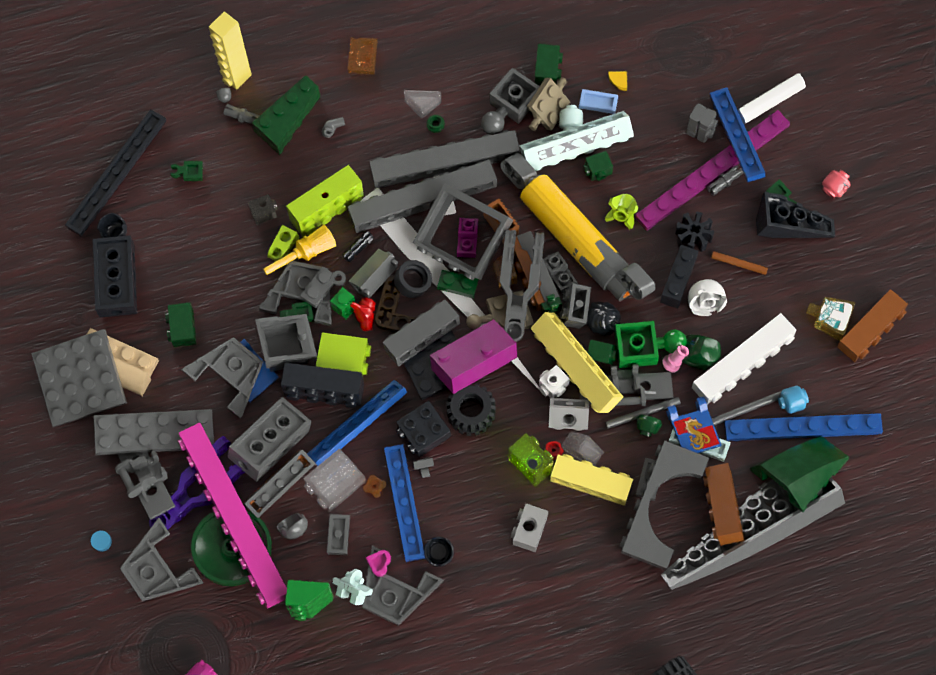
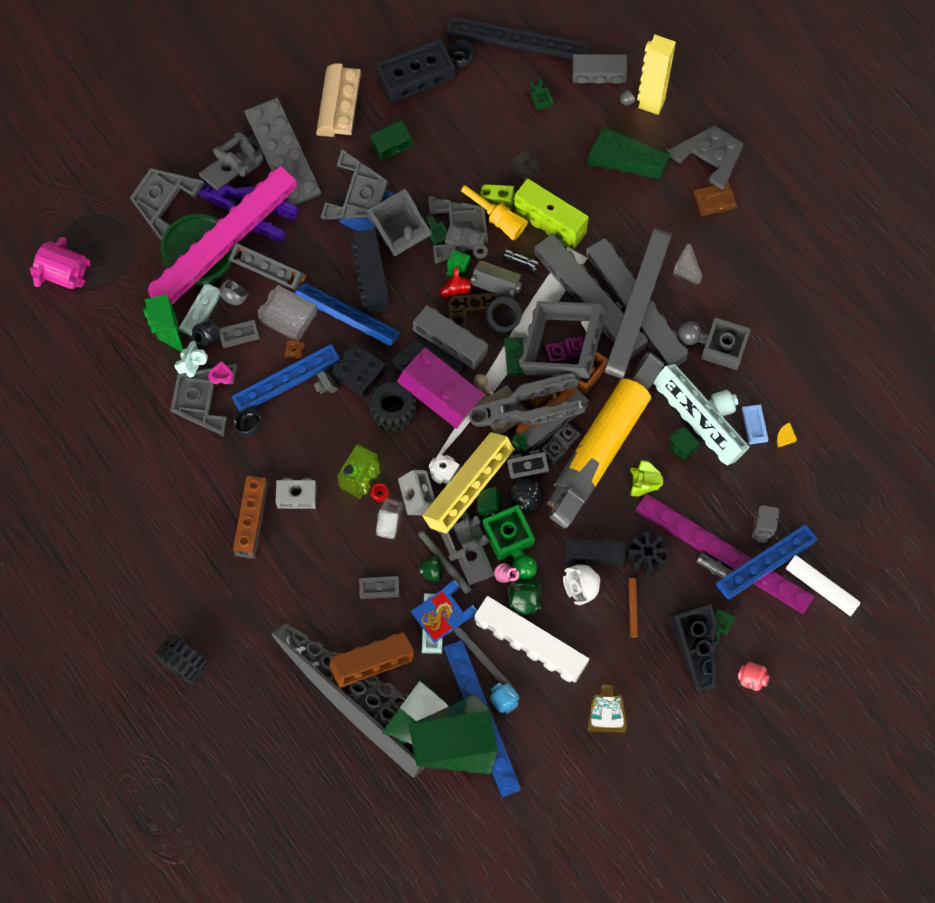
camera: 70 degrees right, 0 degrees up
(79, 378) = (310, 76): dark grey plate -> none
(101, 541) = (174, 148): dark azure tile -> none
(182, 108) = (599, 68): none -> dark grey brick
(242, 115) = (613, 118): dark grey pin -> none
(269, 439) = (304, 232): dark grey brick -> none
(294, 563) = (201, 308): none -> light aqua tile
(312, 35) = (713, 147): none -> dark grey wing
(327, 565) = (205, 332): none -> black head
(331, 125) = (632, 197): dark grey arm -> none
(343, 353) = (407, 281): lime brick -> none
(435, 119) = (671, 280): dark green plate -> none
(451, 152) = (638, 303): none -> dark grey beam
(540, 577) = (250, 517): none -> dark orange piece
(547, 63) = (772, 364): dark green brick -> none
(548, 103) = (729, 374): dark tan plate -> none
(591, 479) = (361, 534): light yellow brick -> none
(671, 463) = (314, 595): dark grey arch -> none
(824, 447) = (456, 738): none -> dark green wedge
(872, 326) = (611, 755): dark orange brick -> none

